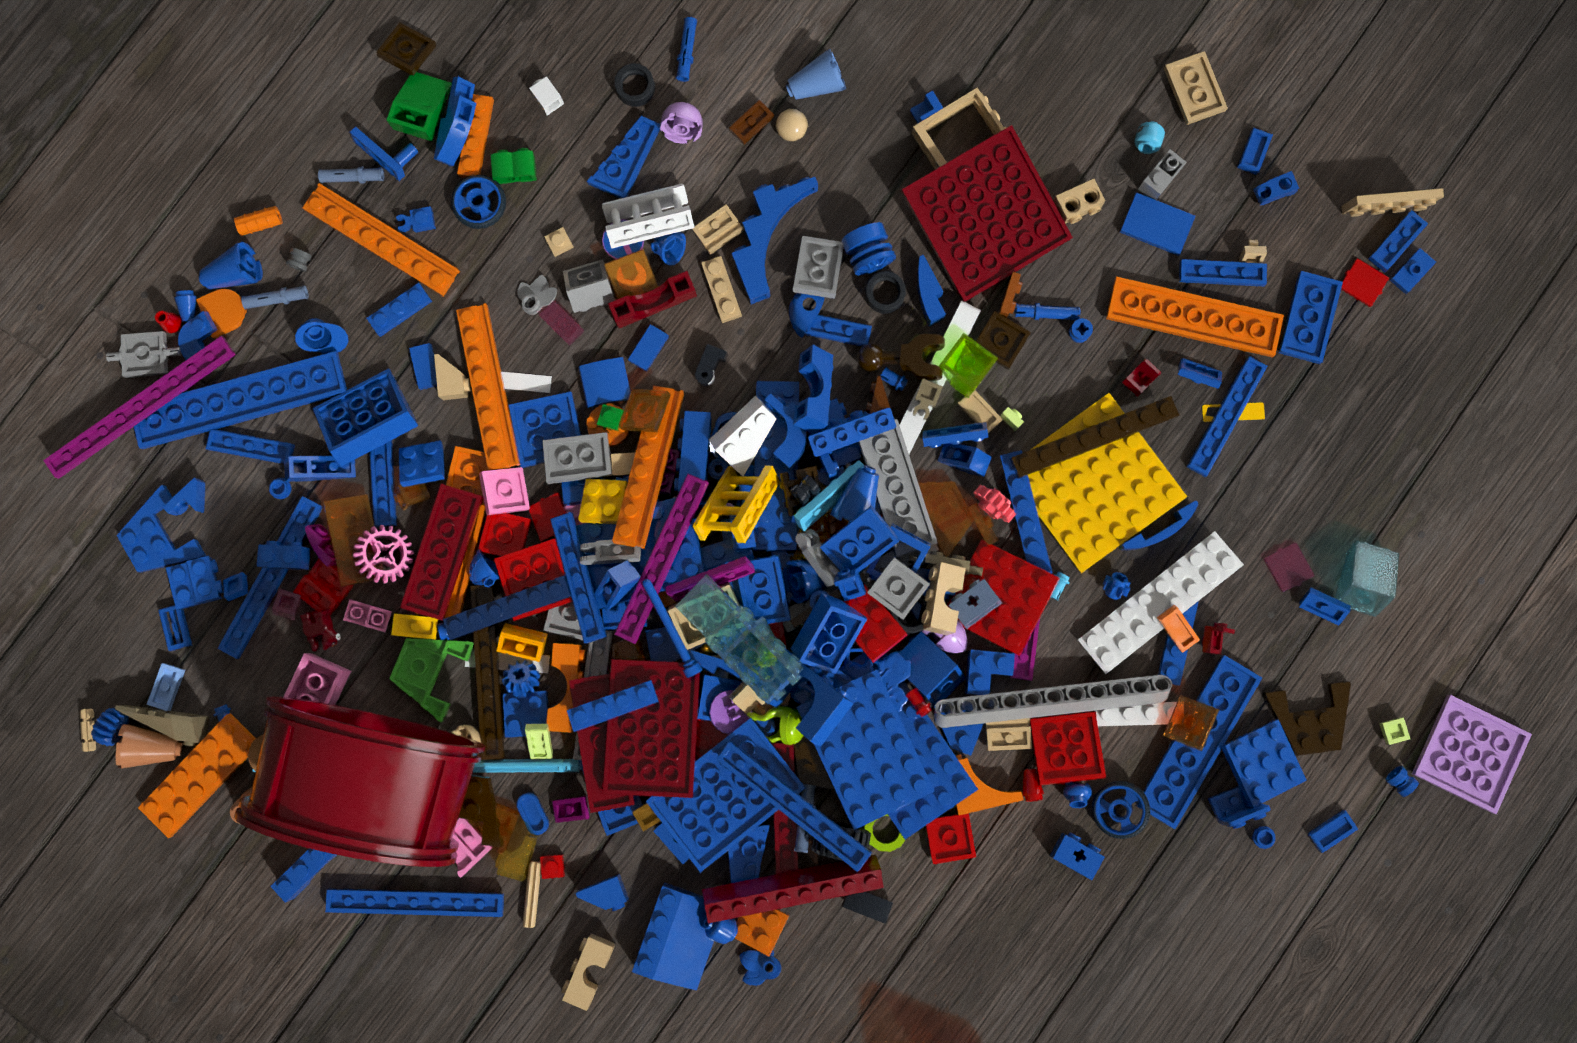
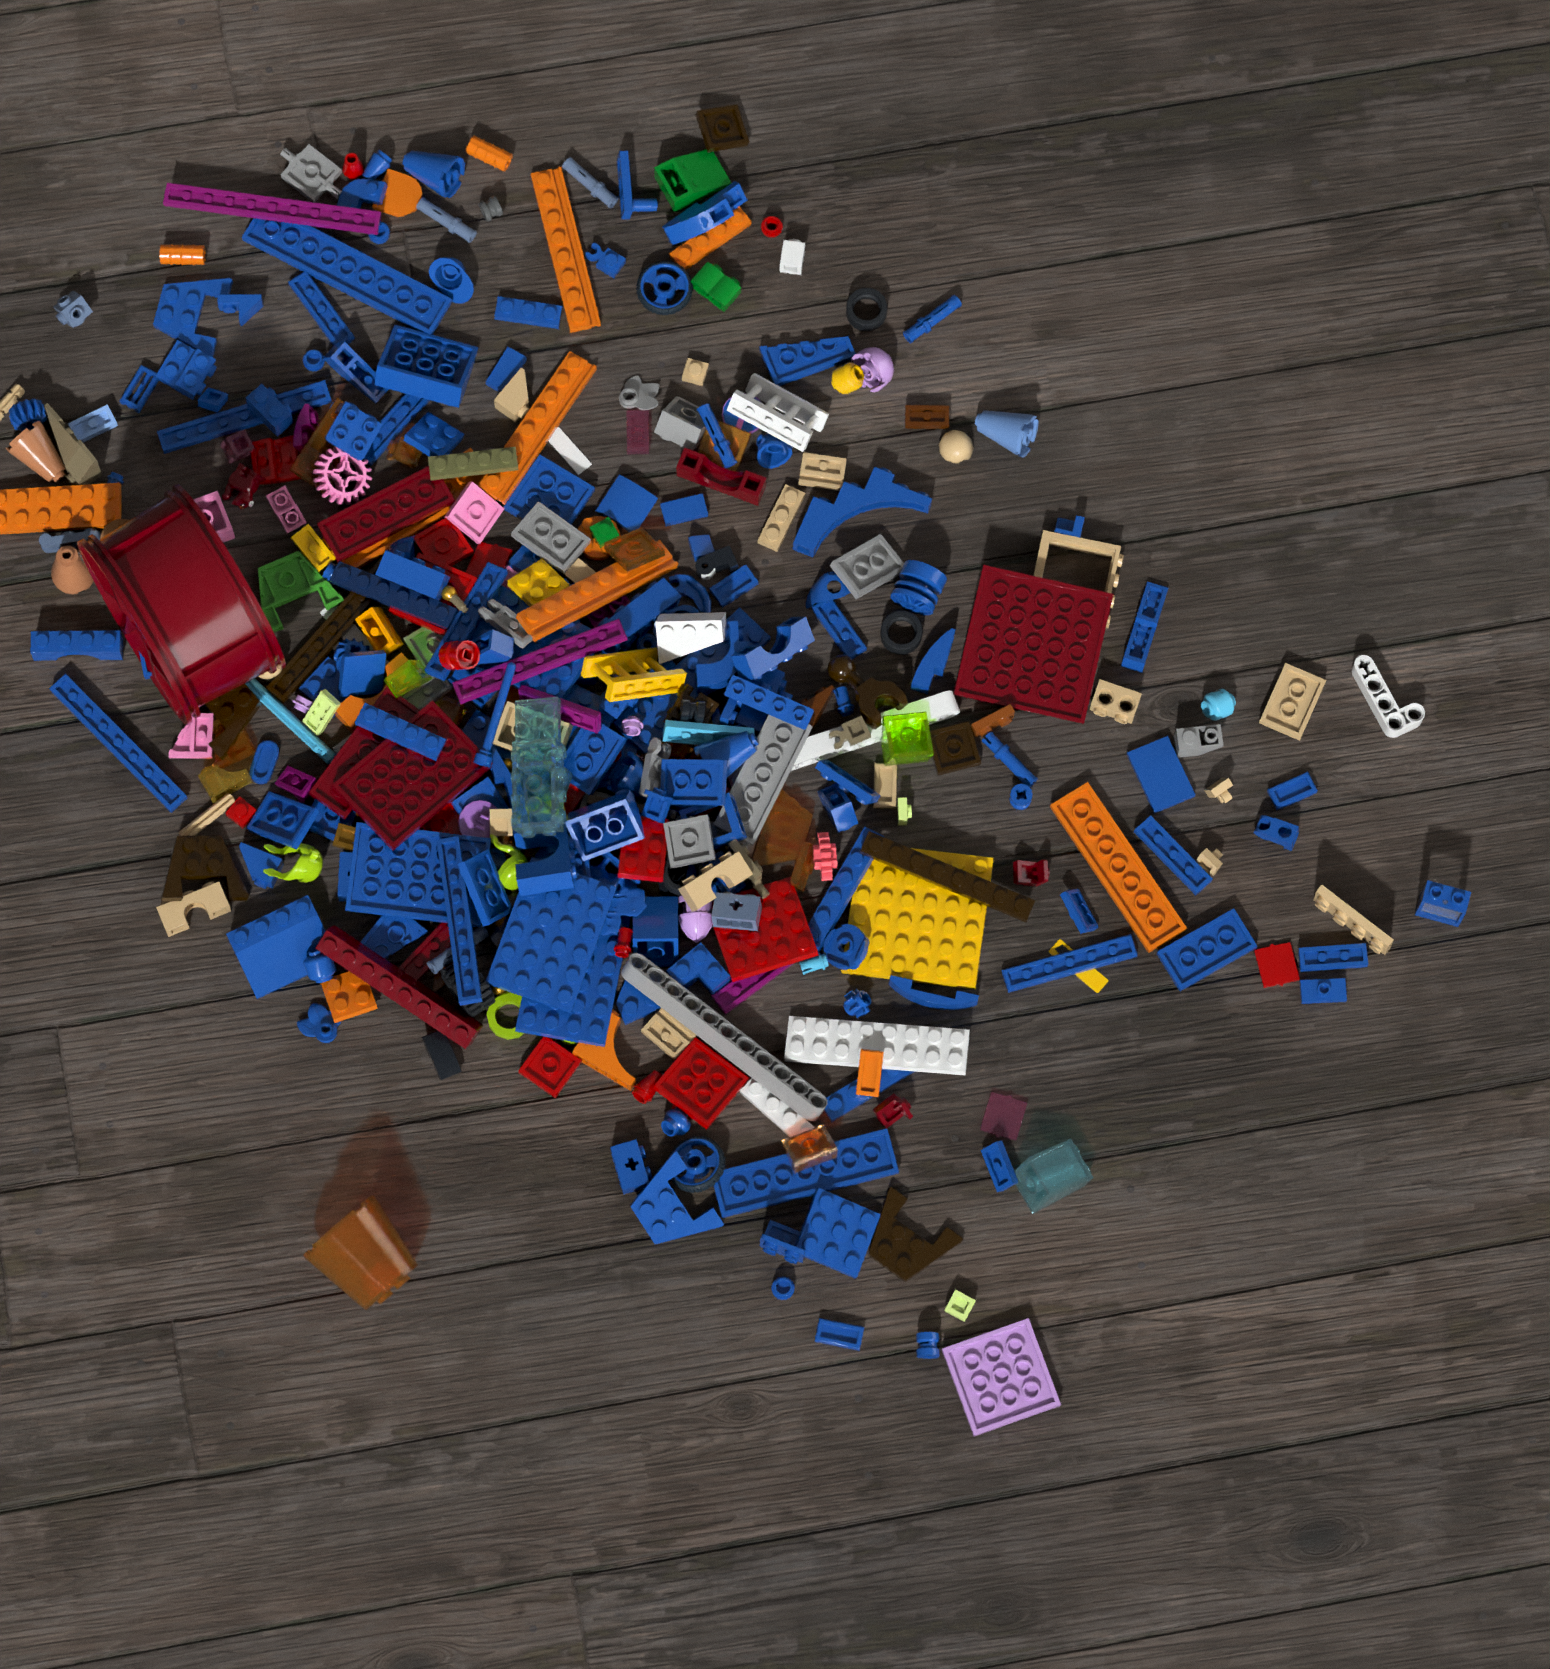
camera: 35 degrees right, 10 degrees down
(67, 618) = (72, 309): none -> sand blue brick
(108, 501) = (182, 254): none -> orange axle
(232, 789) = (53, 544): none -> sand blue plate
(240, 351) = (383, 234): none -> blue tile
(359, 516) = (353, 430): none -> blue bracket
(469, 457) = (473, 463): none -> olive plate
(506, 83) = (771, 220): none -> red plate
(507, 581) = (412, 574): none -> blue brick
(518, 745) = (302, 704): none -> lavender plate
(540, 686) = (362, 673): none -> blue tile
(547, 569) = (449, 593): none -> piece
(558, 931) = (202, 859): none -> dark brown wing
(577, 660) = (407, 678): none -> clear neon green slope
(589, 847) = (282, 820): none -> blue tile
(601, 610) = (459, 655): none -> red wheel
(622, 273) = (720, 443): none -> blue pin
(641, 866) = (306, 868): none -> lime hair
(670, 146) = (847, 378): none -> yellow head
(686, 363) = (700, 546): none -> blue slope
(711, 398) = (693, 589): none -> blue piece
(736, 369) = (734, 586): none -> blue tile
(771, 540) = (632, 726): none -> lavender plate
(785, 761) = (485, 887): none -> blue plate
(1044, 131) = (1144, 627): none -> blue slope
(1067, 565) = (858, 947): none -> blue plate
(1131, 866) = (662, 1210): none -> blue wing
(1209, 196) = (1219, 790): none -> tan tile
(1251, 24) = (1384, 695): none -> white beam
(1441, 131) = (1443, 903): none -> blue window

